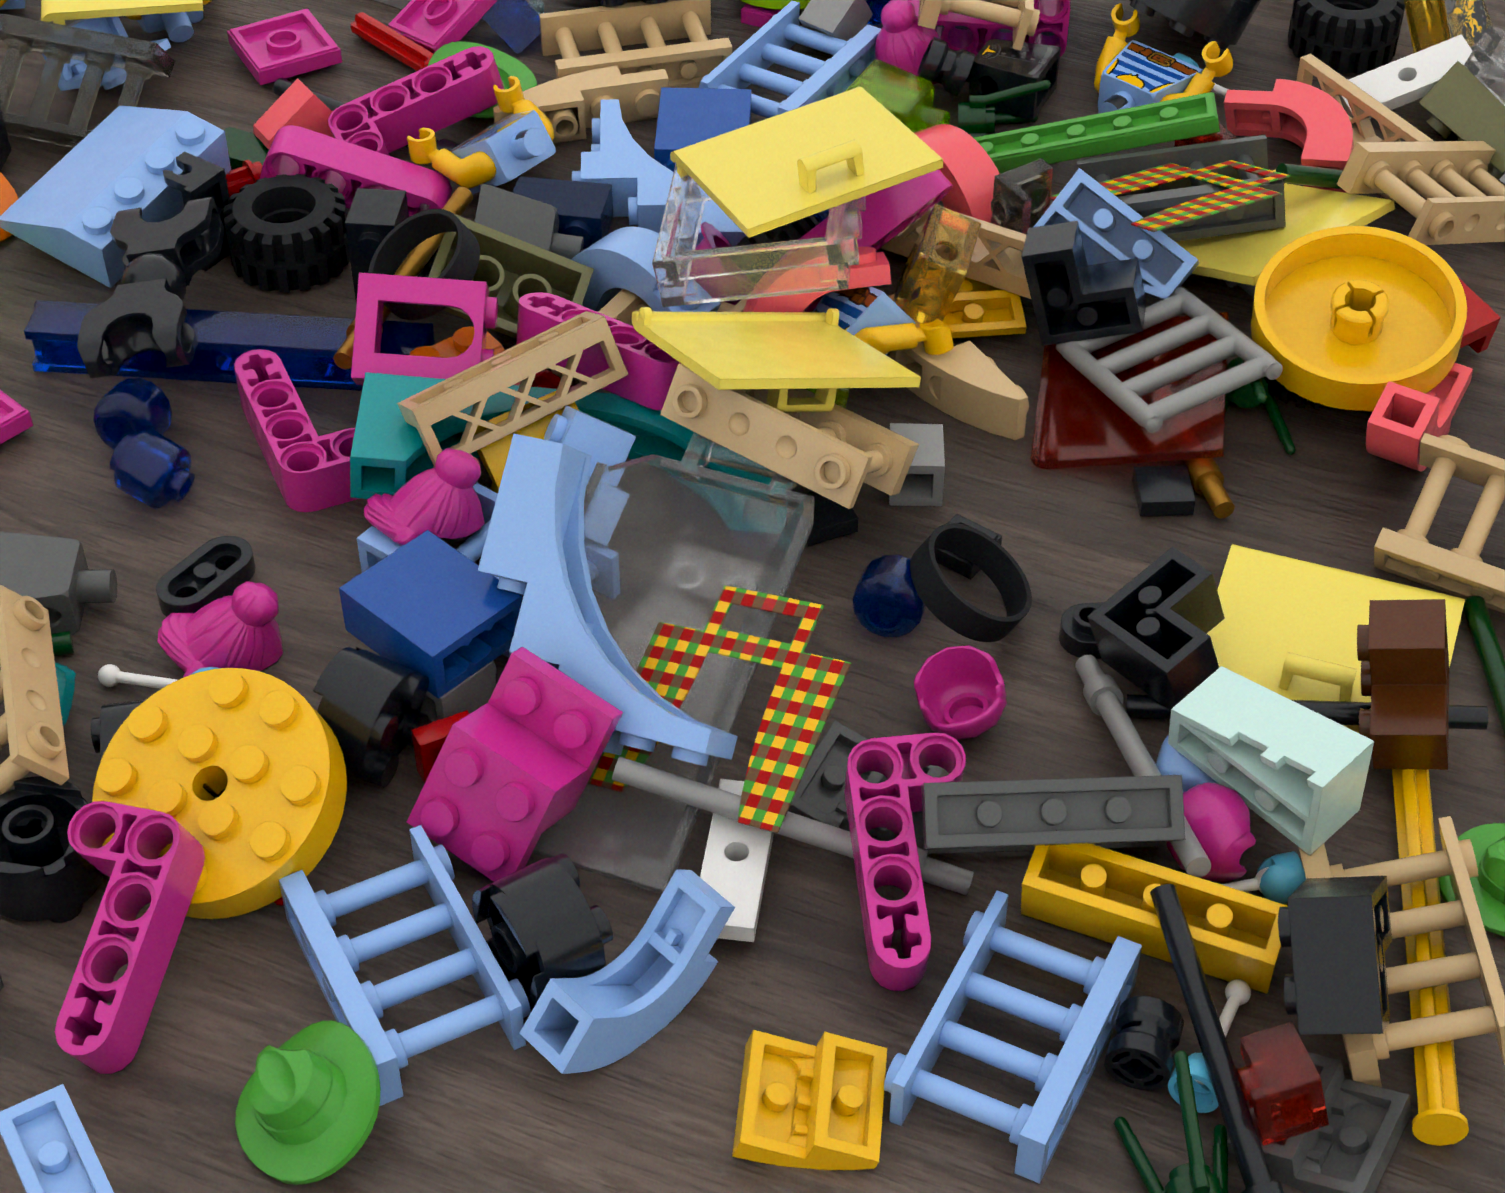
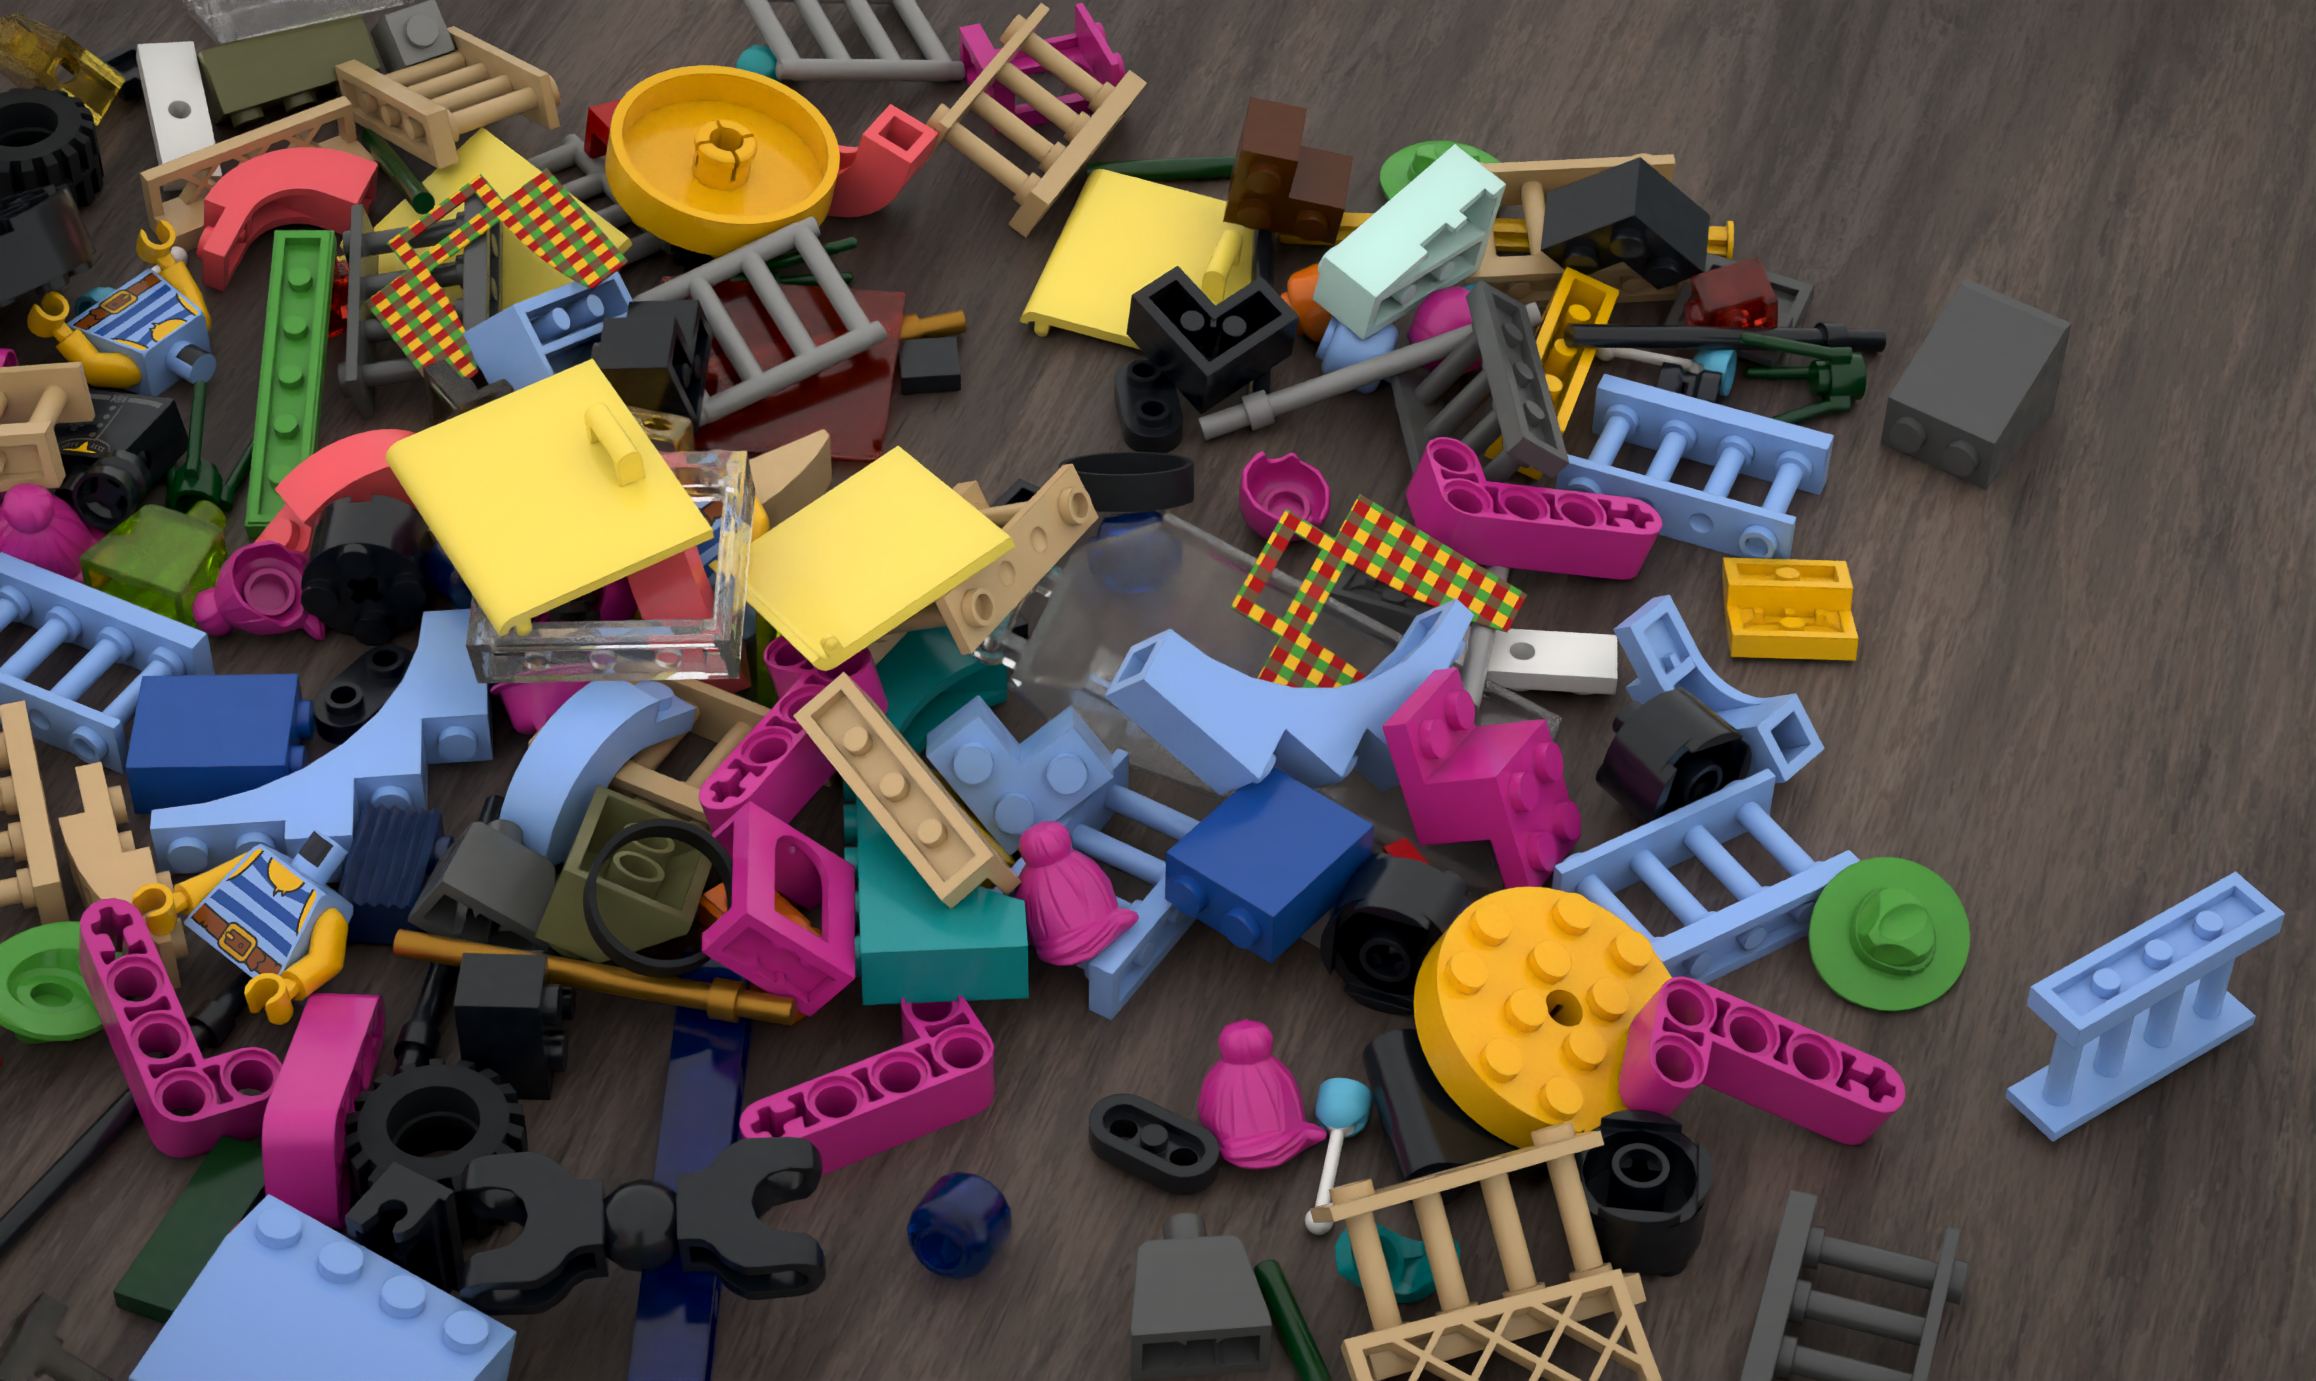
camera: 95 degrees left, 0 degrees up
(131, 408) = (861, 1267): clear blue head -> none
(294, 107) = (141, 1189): coral slope -> none

